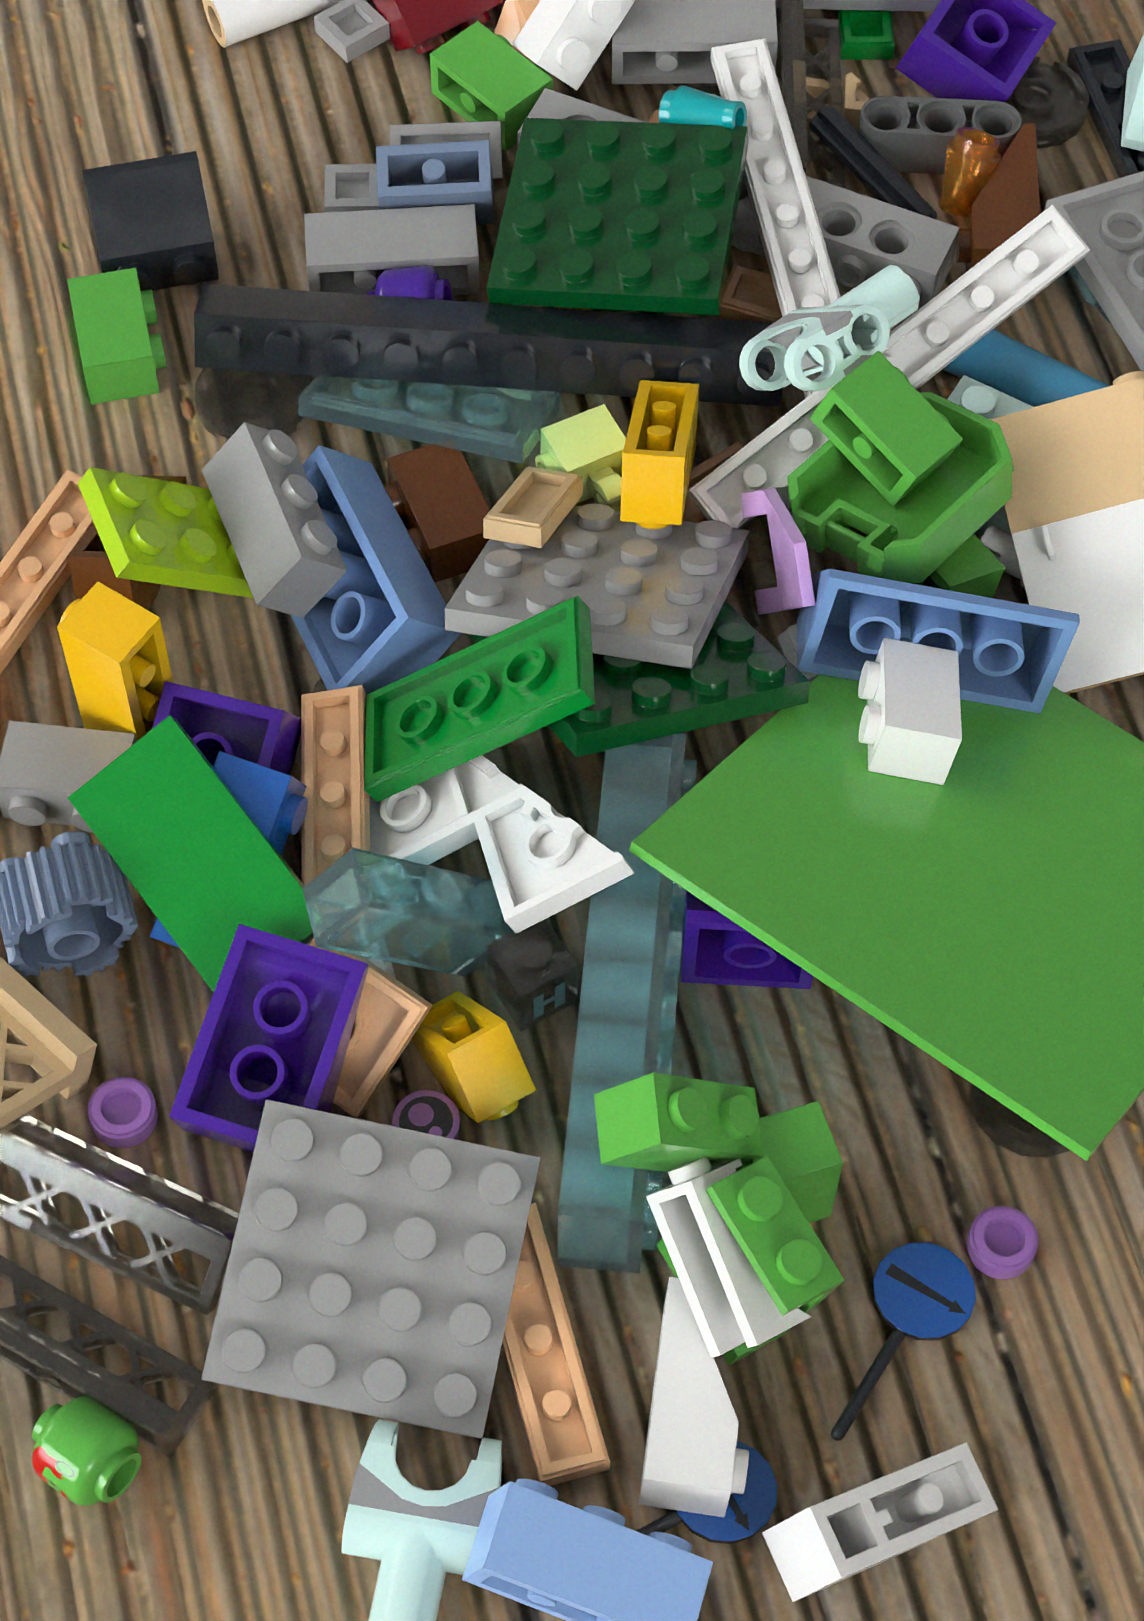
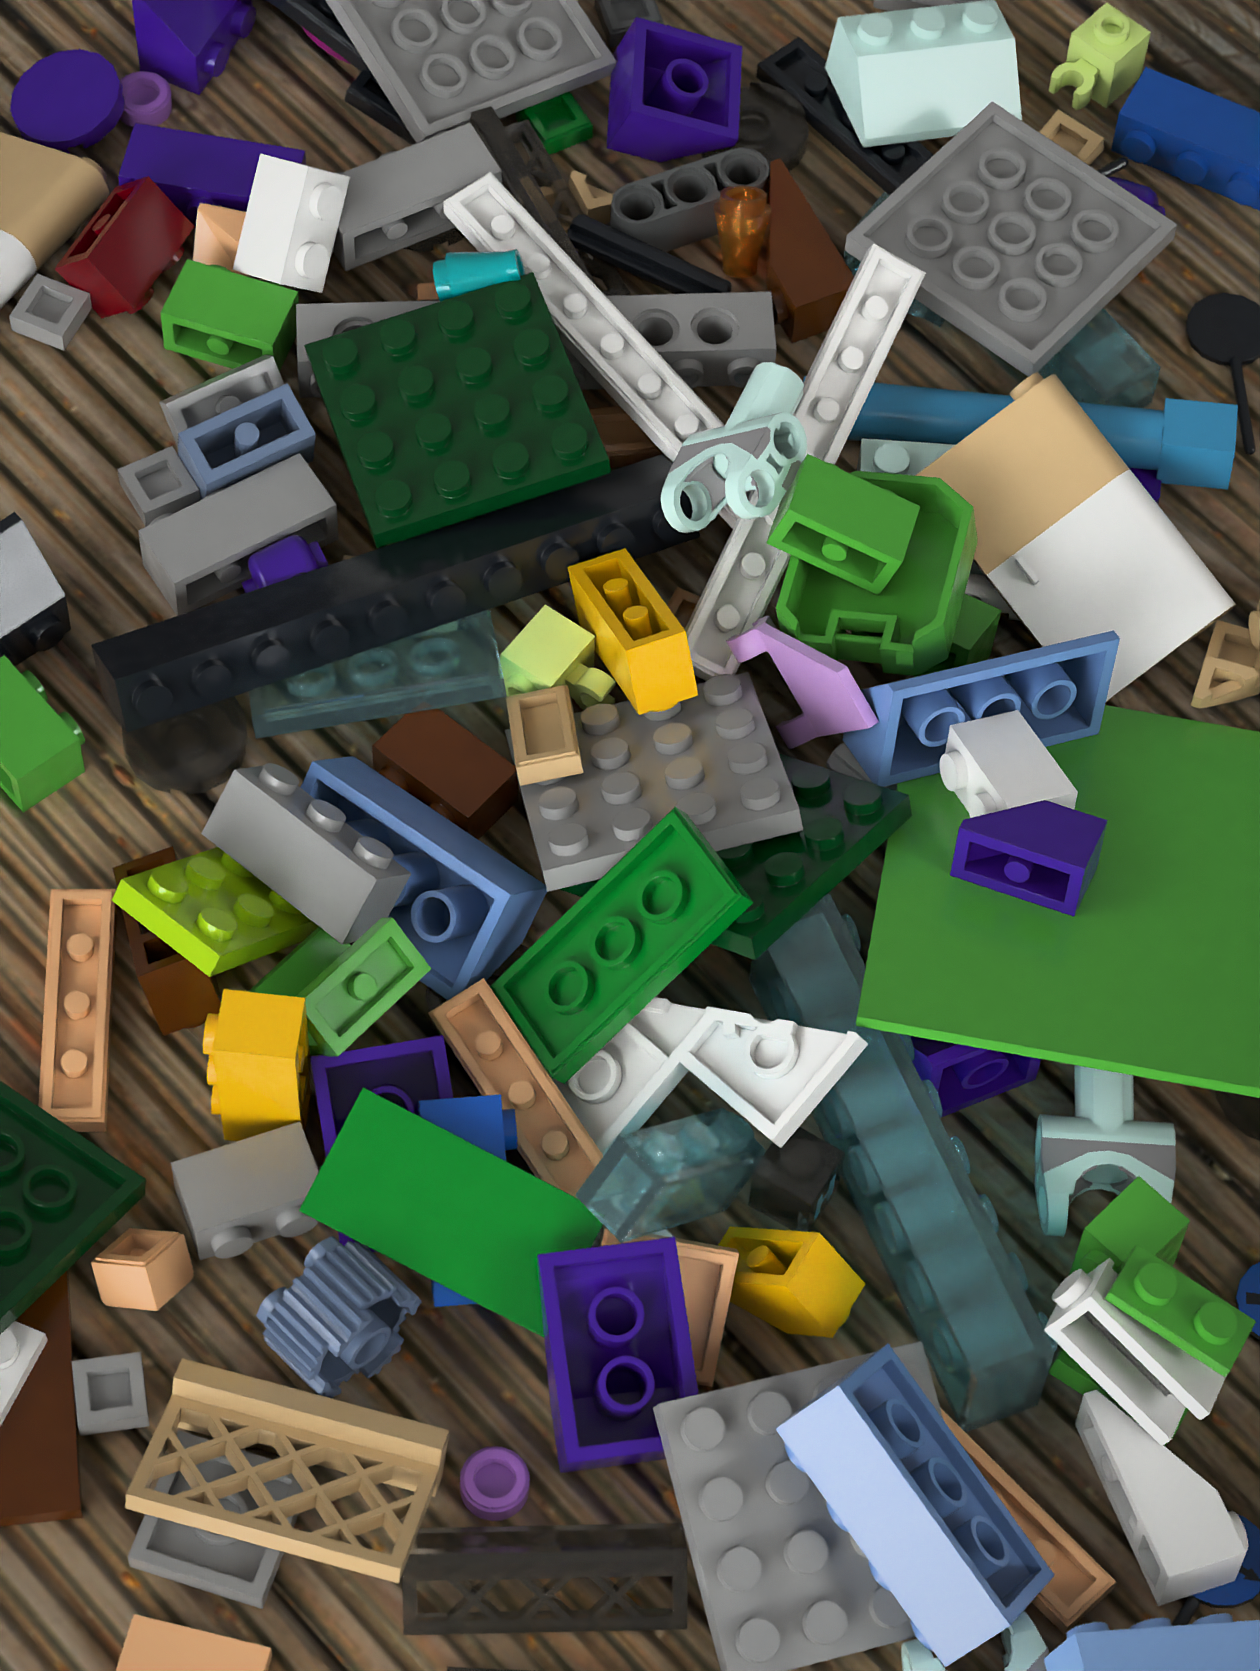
camera: 30 degrees left, 0 degrees up
(229, 634) = (346, 983): none -> bright green panel
(428, 1113) = (776, 1353): tile -> none
(444, 1296) = (916, 1506): none -> slope
(675, 1121) = (1043, 1252): bright green brick -> none
(832, 1069) = (1098, 1147): none -> light aqua connector
(891, 777) = (1032, 853): none -> dark purple slope

